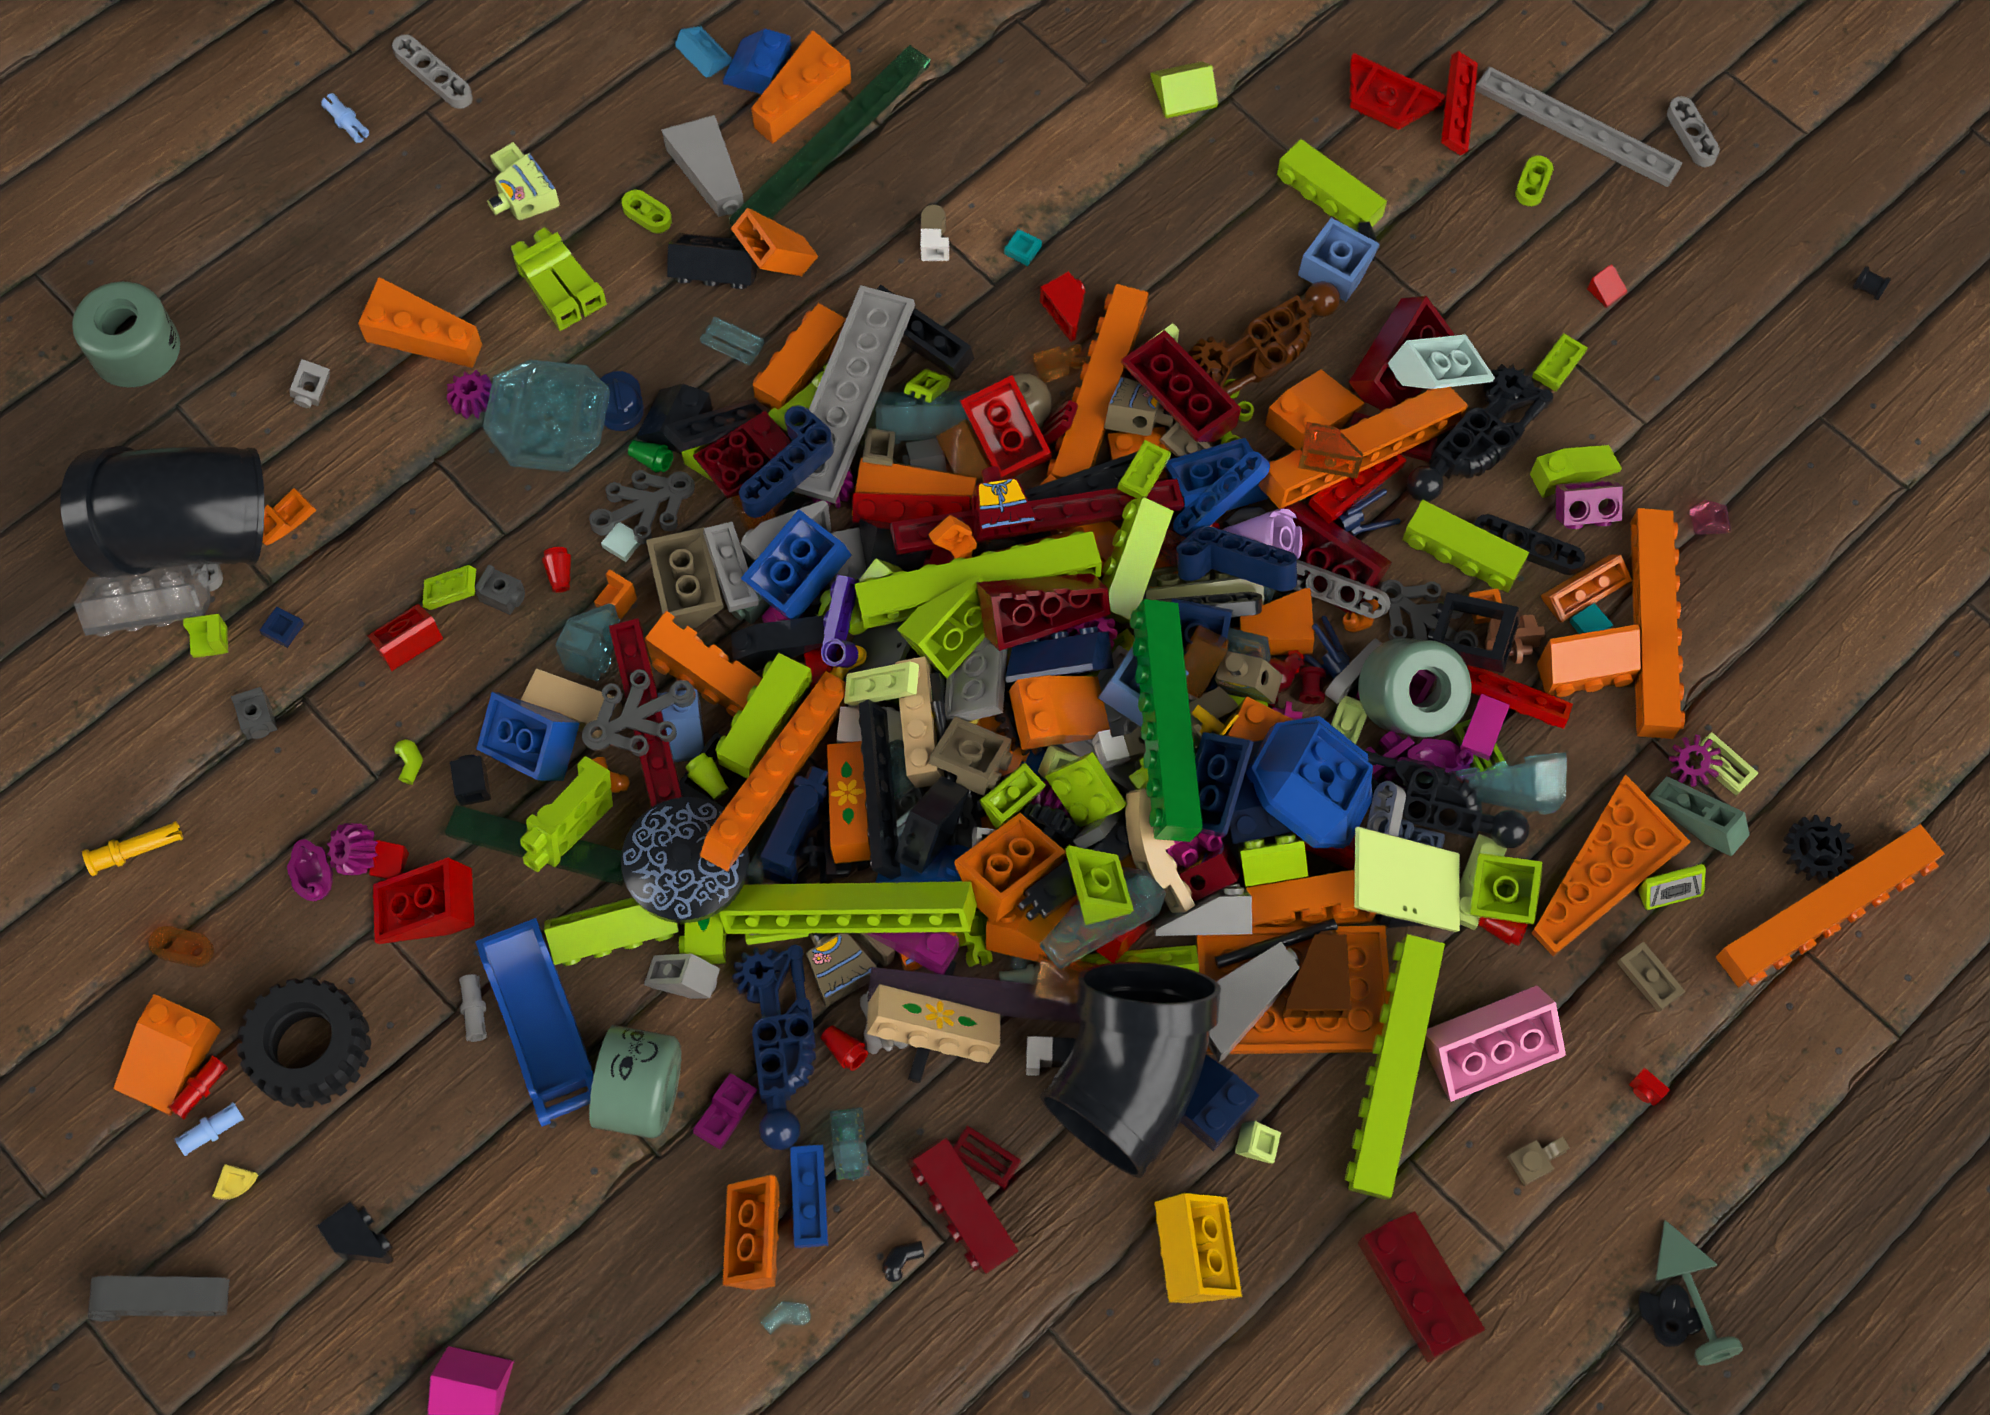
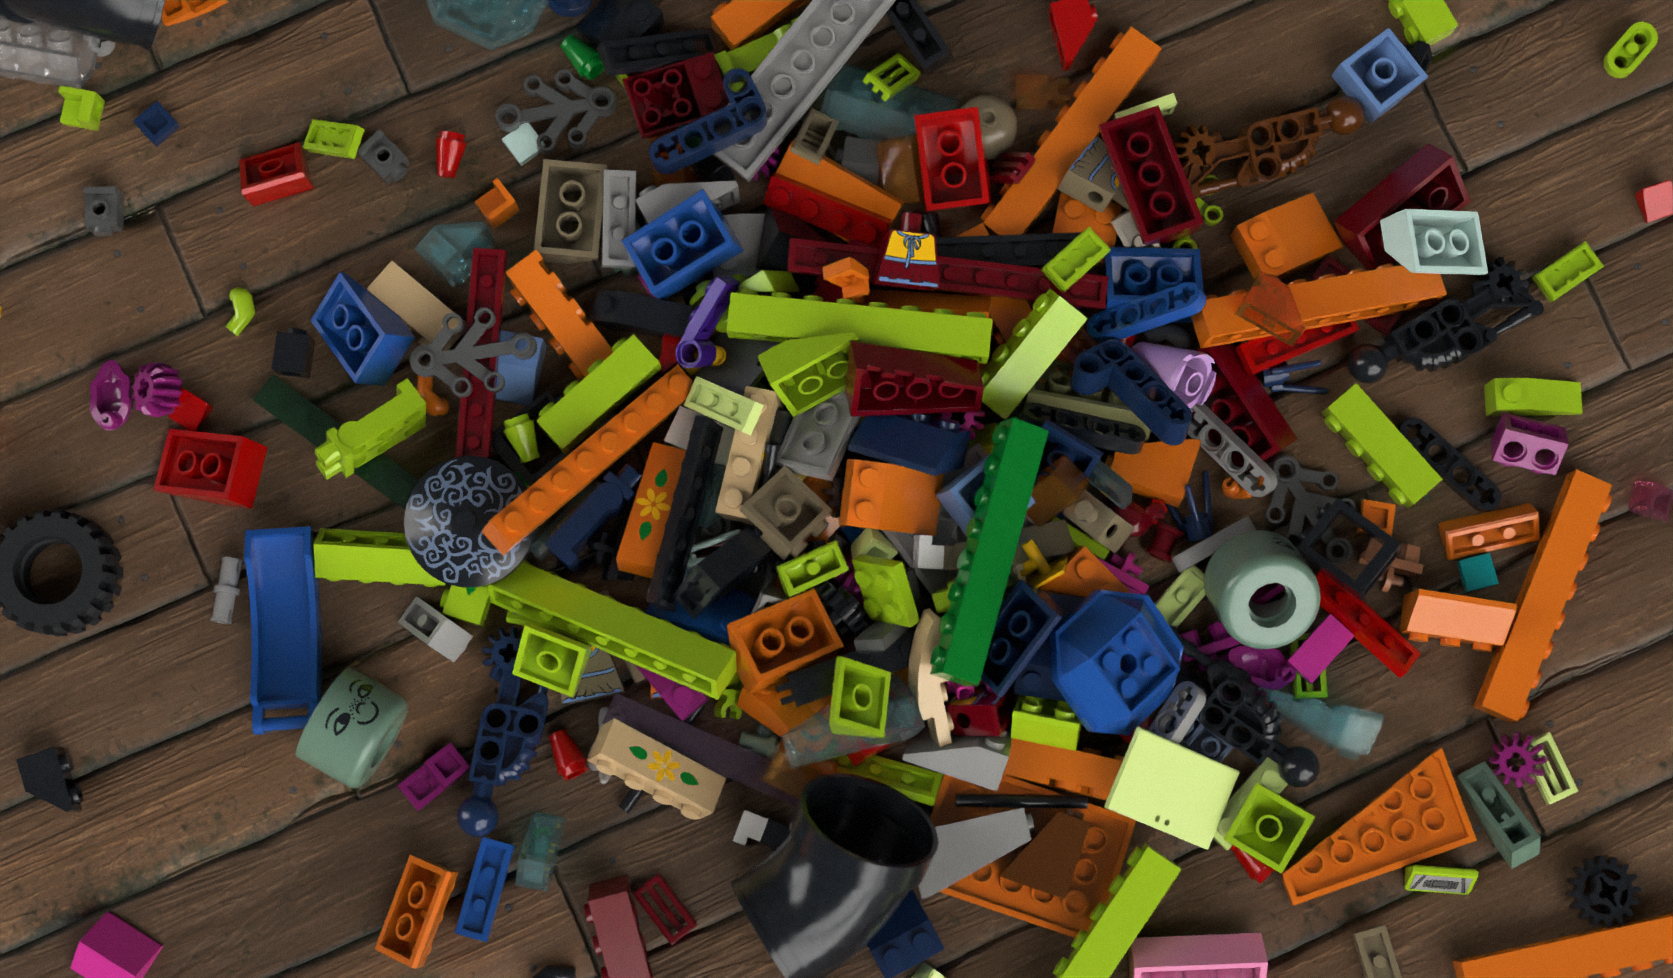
camera: 15 degrees right, 15 degrees up
(801, 956) = (551, 659): none -> lime slope

